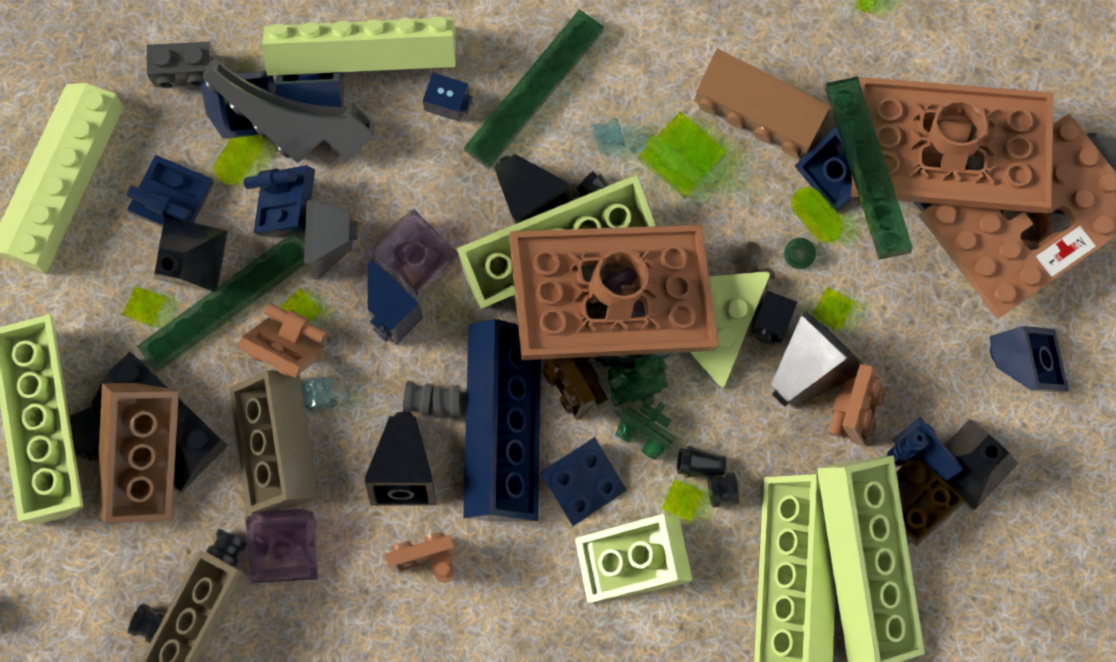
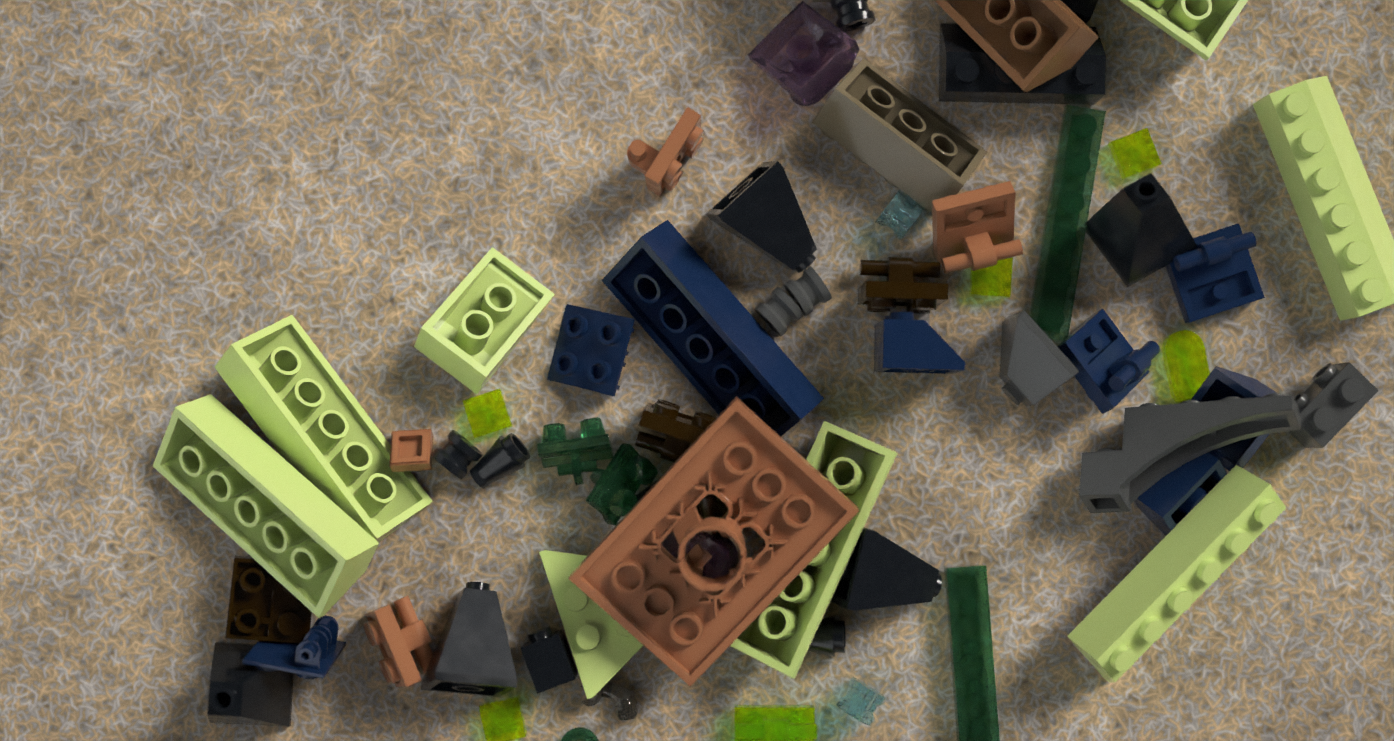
camera: 140 degrees right, 10 degrees up
(361, 351) = (899, 285): none -> dark brown plate
(413, 253) = (937, 419): slope -> none
(447, 97) = (1047, 601): dark blue brick -> none
(750, 518) = (411, 450): none -> nougat tile

